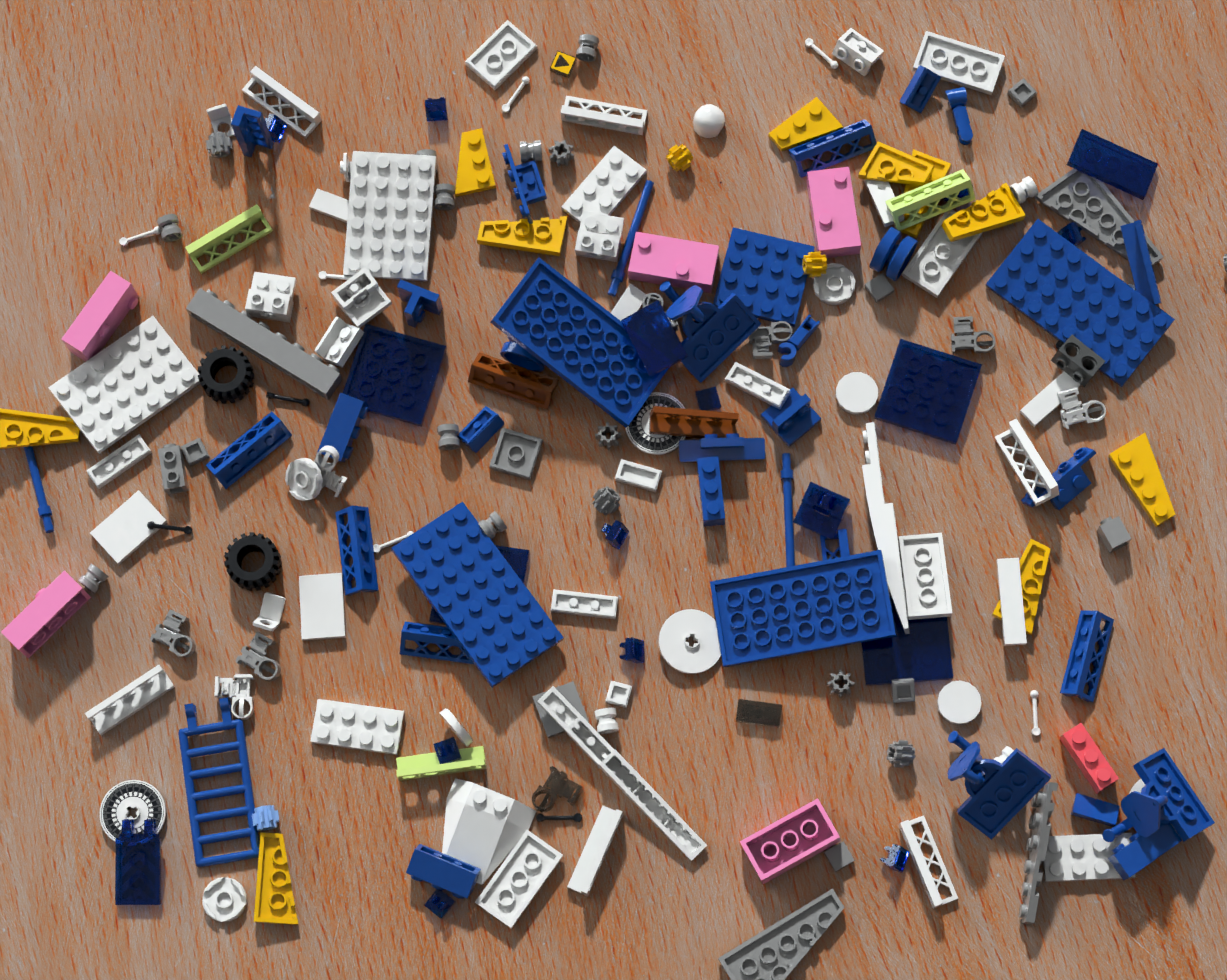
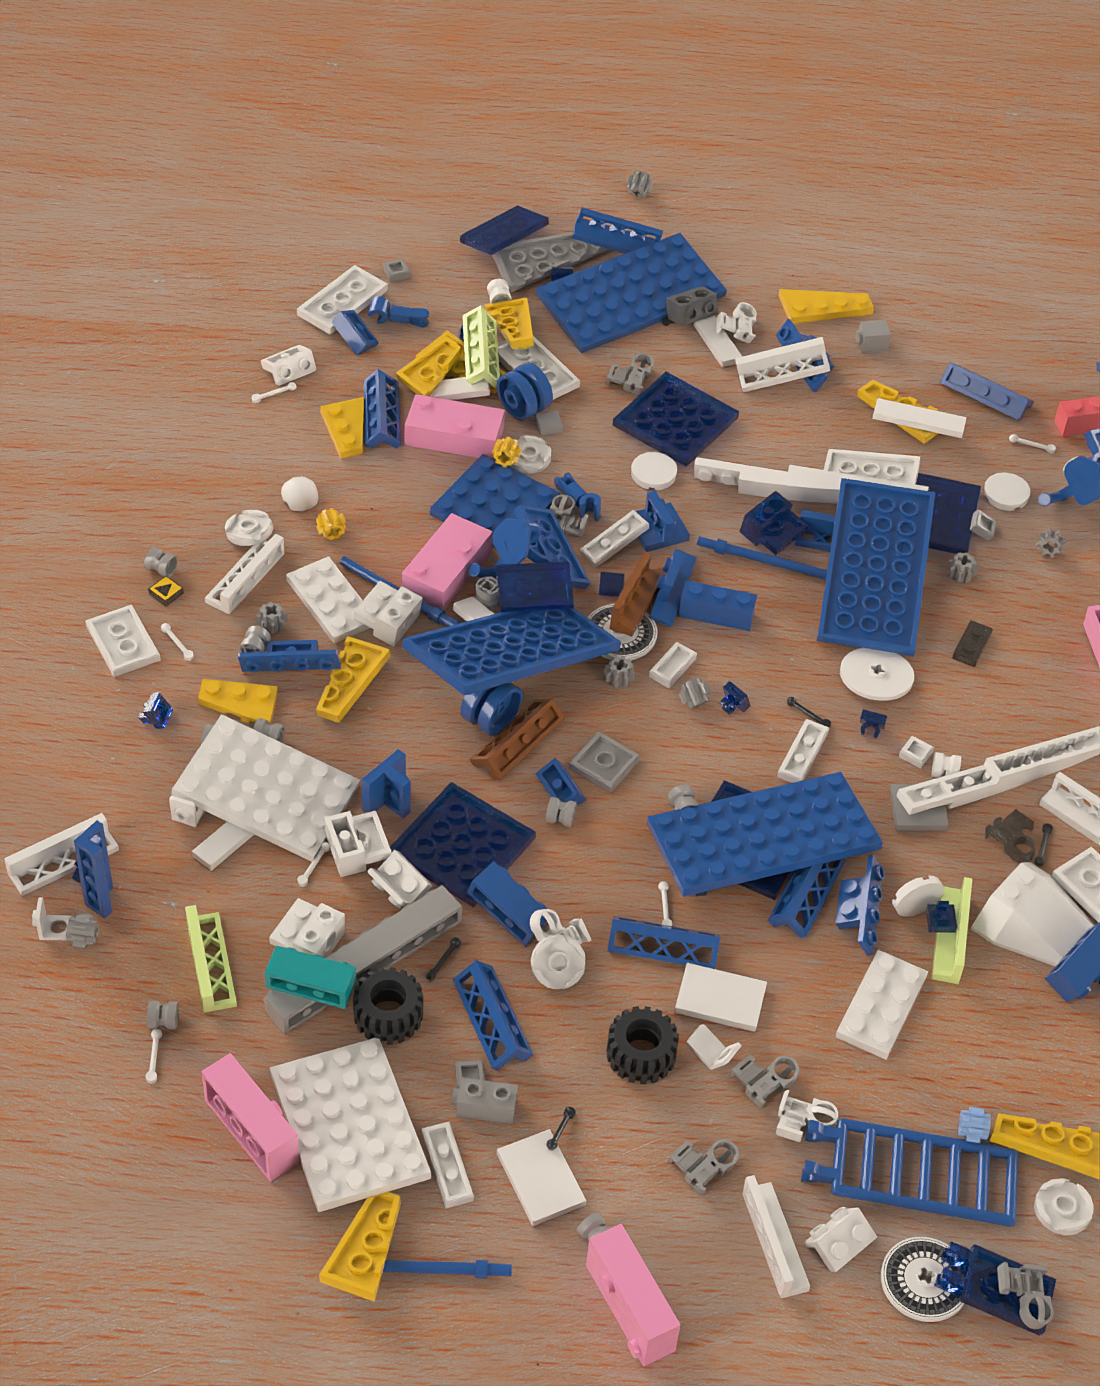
camera: 80 degrees left, 25 degrees down
(139, 881) = (1031, 1287): none -> light grey piece
(144, 745) = (841, 1237): none -> white bracket
(219, 312) = (310, 976): none -> teal brick
(442, 687) = (860, 904): none -> blue bracket
(622, 614) = (791, 701): none -> black hinge
(653, 97) = (248, 528): none -> white tile

